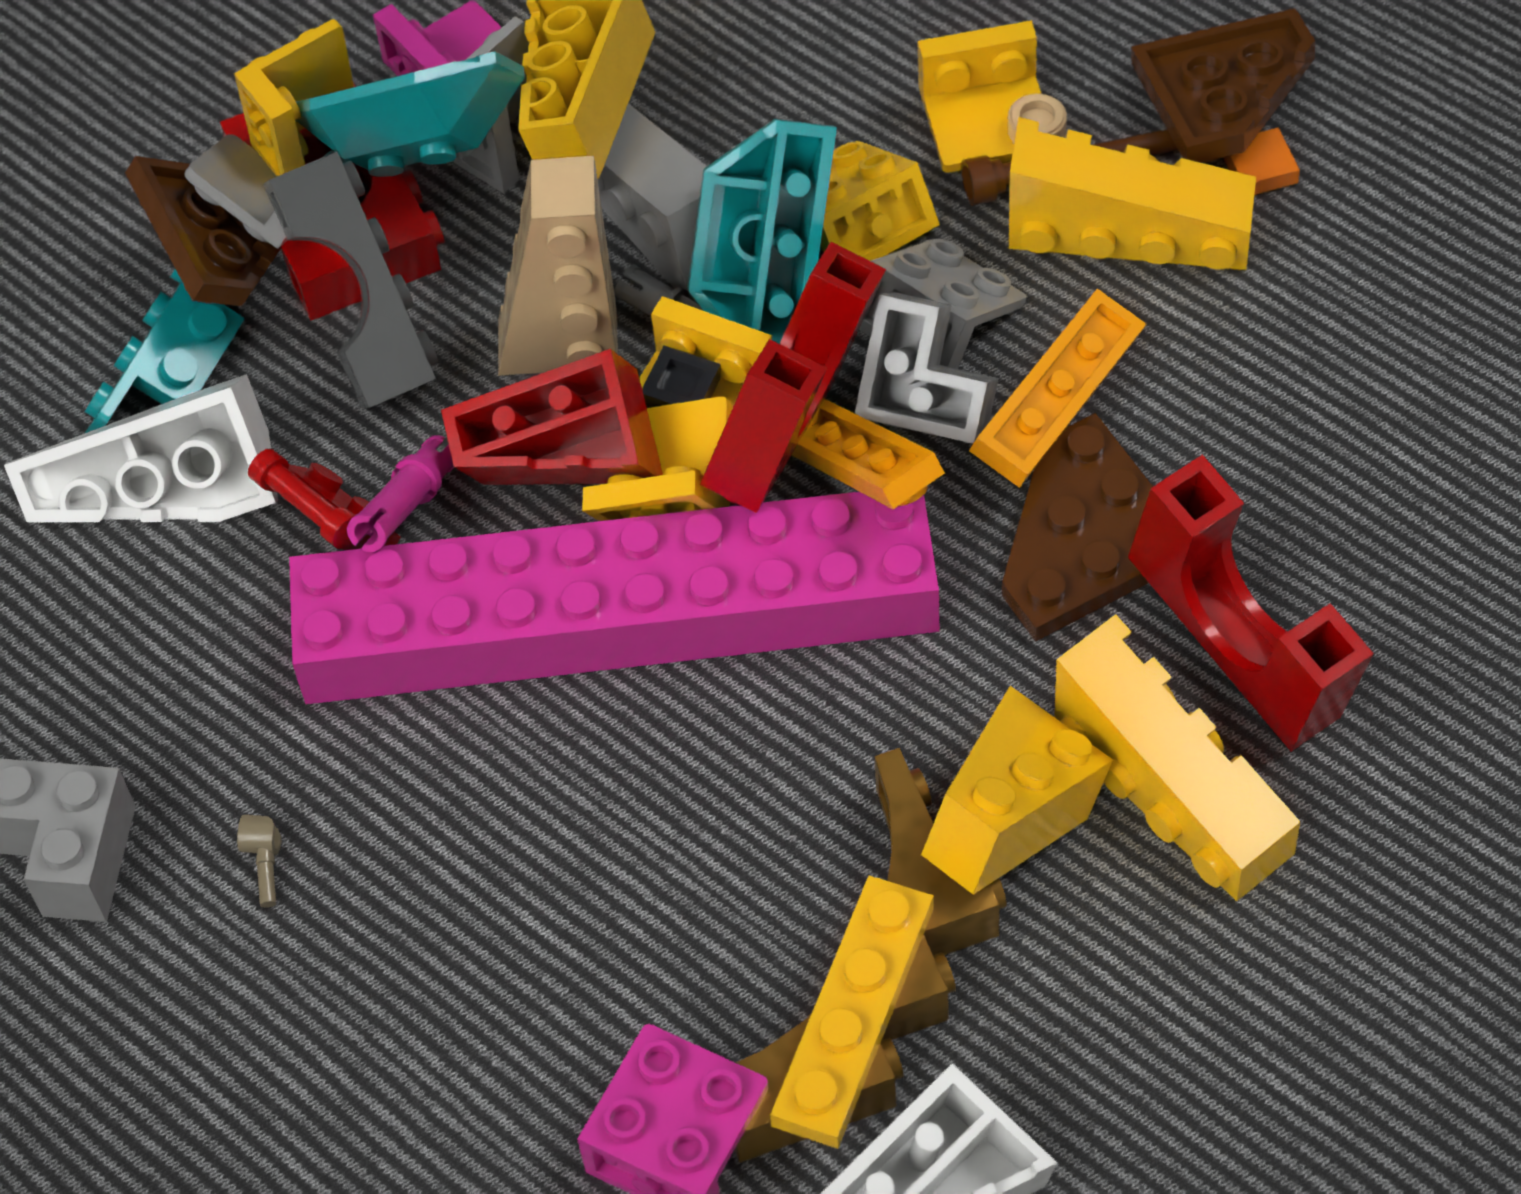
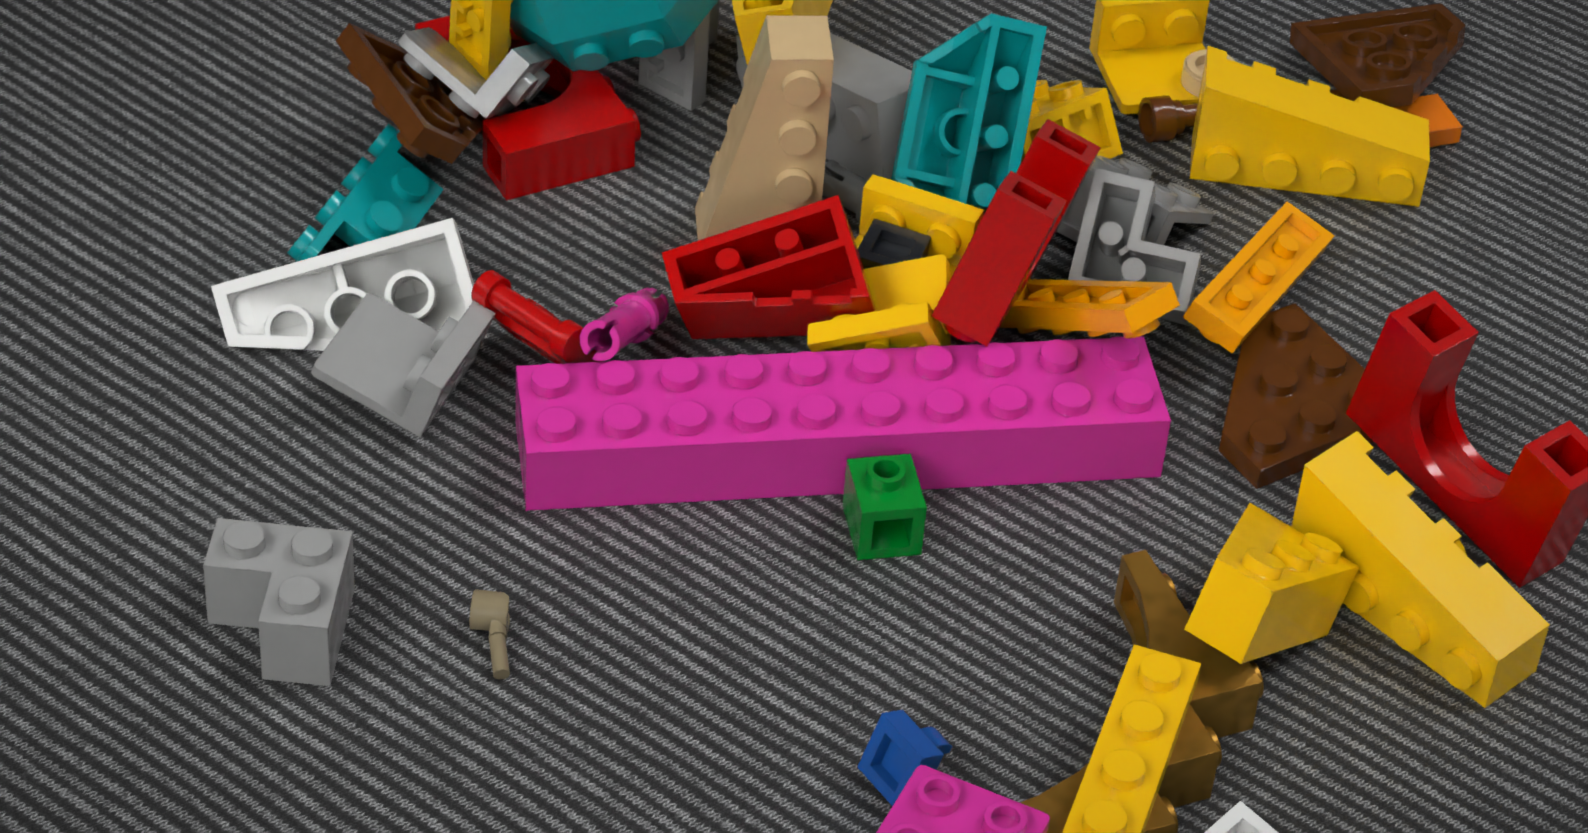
camera: 10 degrees left, 15 degrees down
(184, 542) = (399, 361): none -> light grey bracket
(323, 207) = (544, 70): dark grey arch -> none
(642, 995) = (898, 750): none -> blue tile
(650, 694) = (884, 506): none -> green brick

